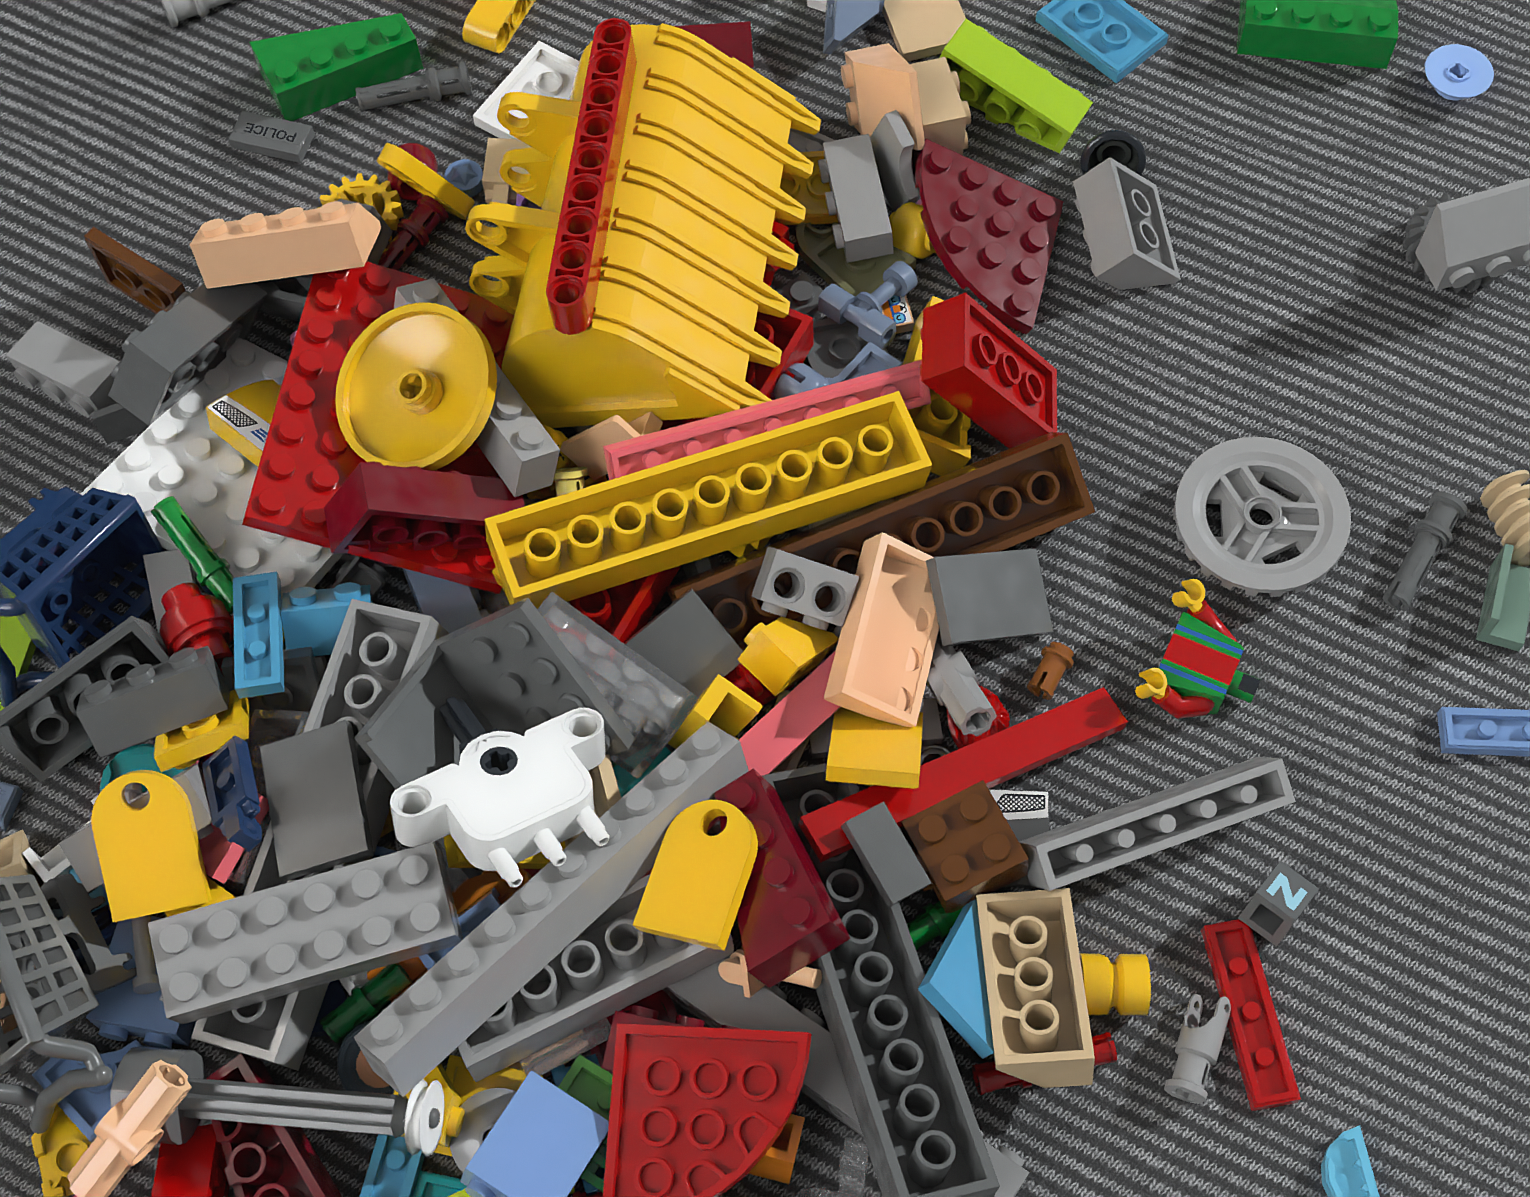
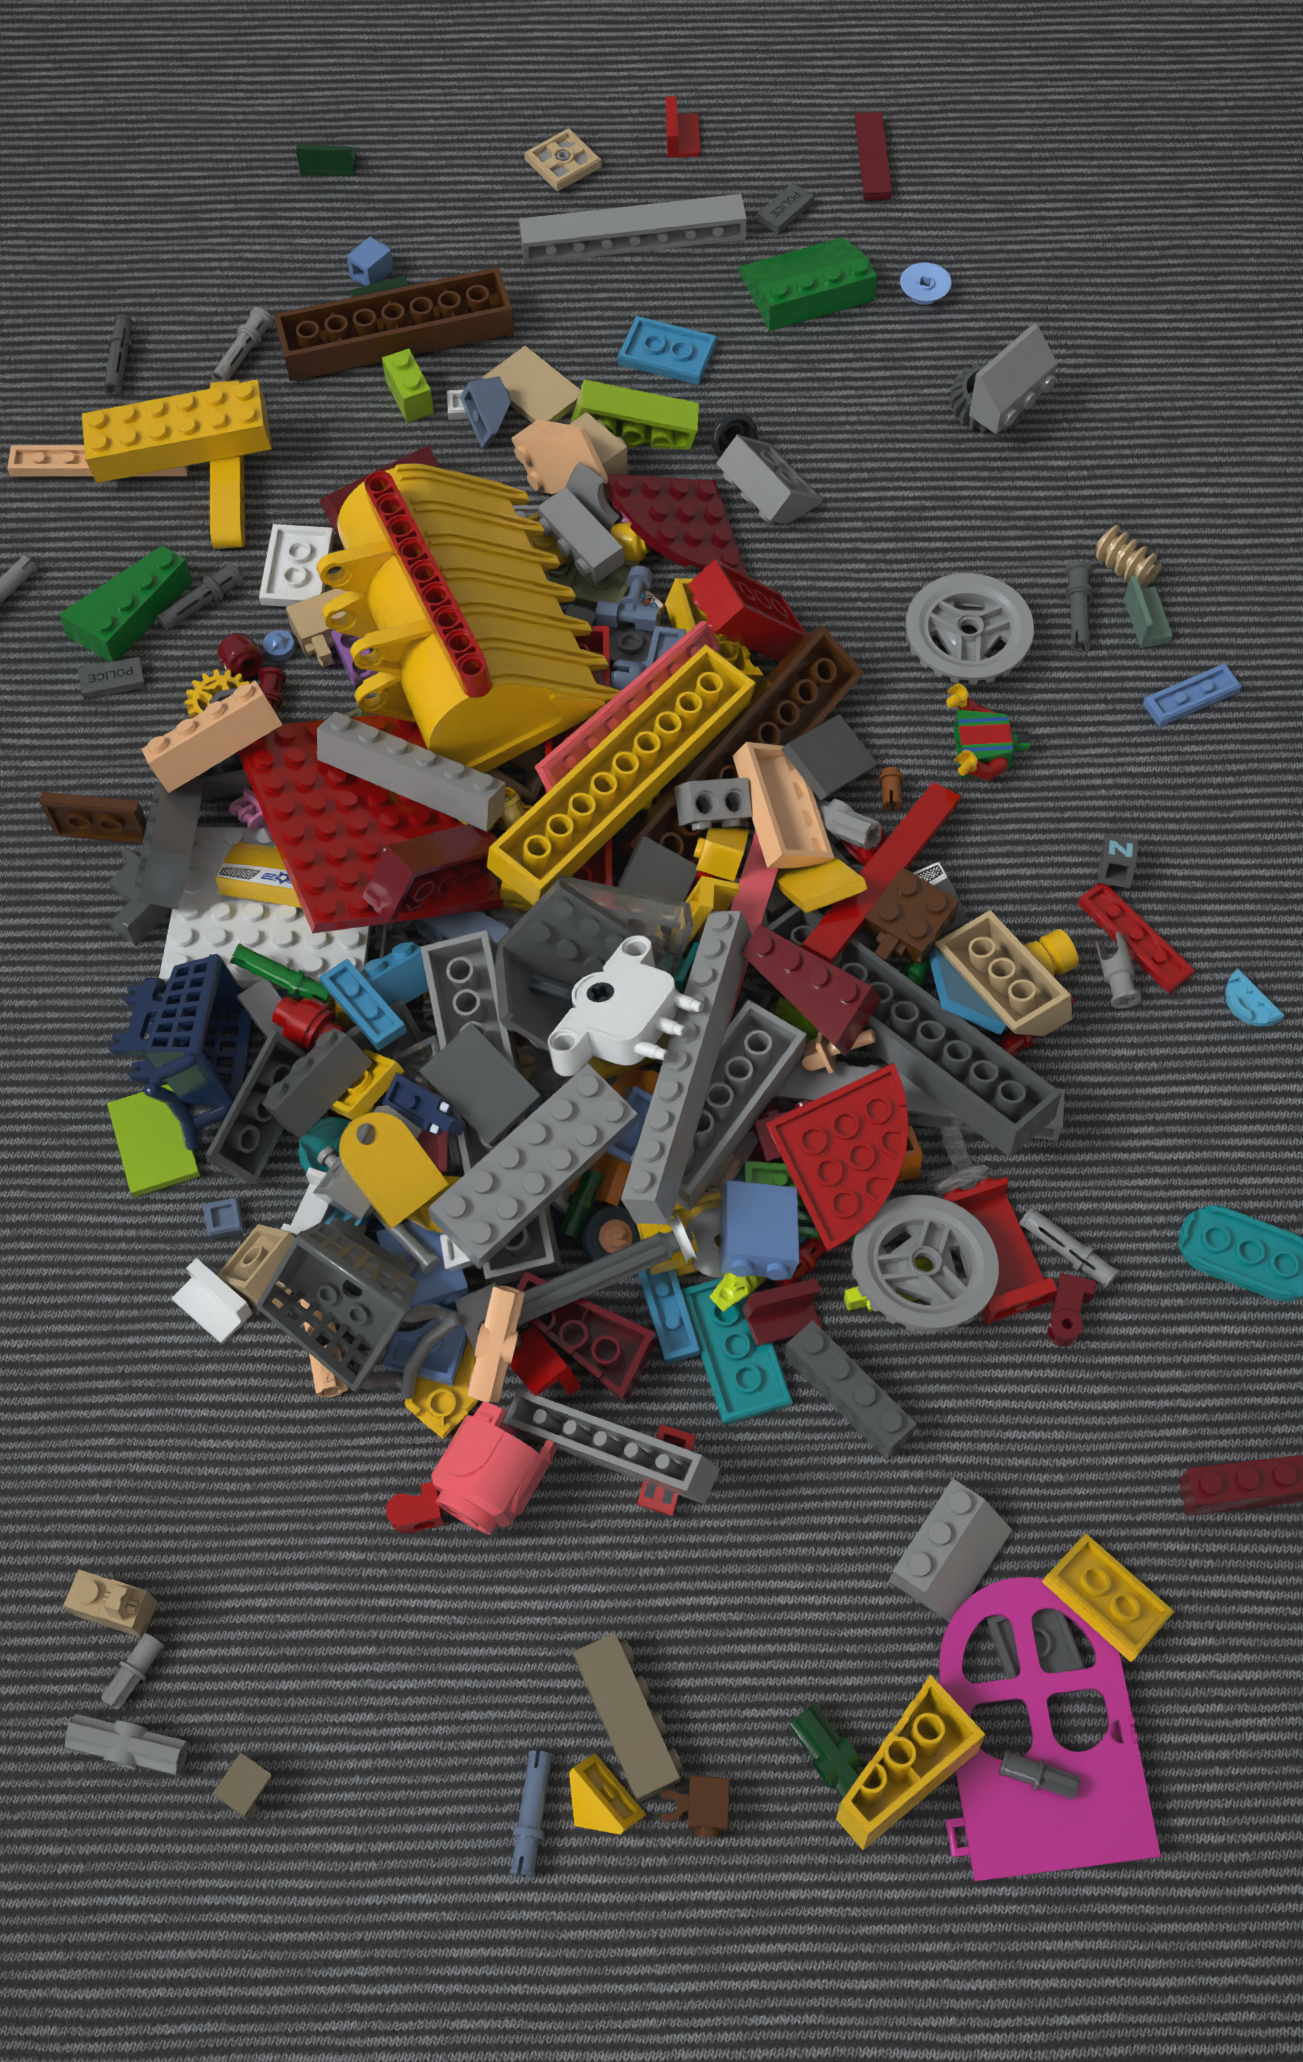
camera: 30 degrees left, 0 degrees up
(64, 368) = (80, 904): light grey brick -> none
(416, 387) = (380, 785): yellow dish -> none
(425, 180) = (261, 654): yellow beam -> none
(587, 447) = (521, 773): light nougat panel -> none
(699, 876) = (768, 1007): yellow tile -> none
(886, 854) = (870, 940): dark grey tile -> none
(1156, 822) = (1019, 845): light grey brick -> none

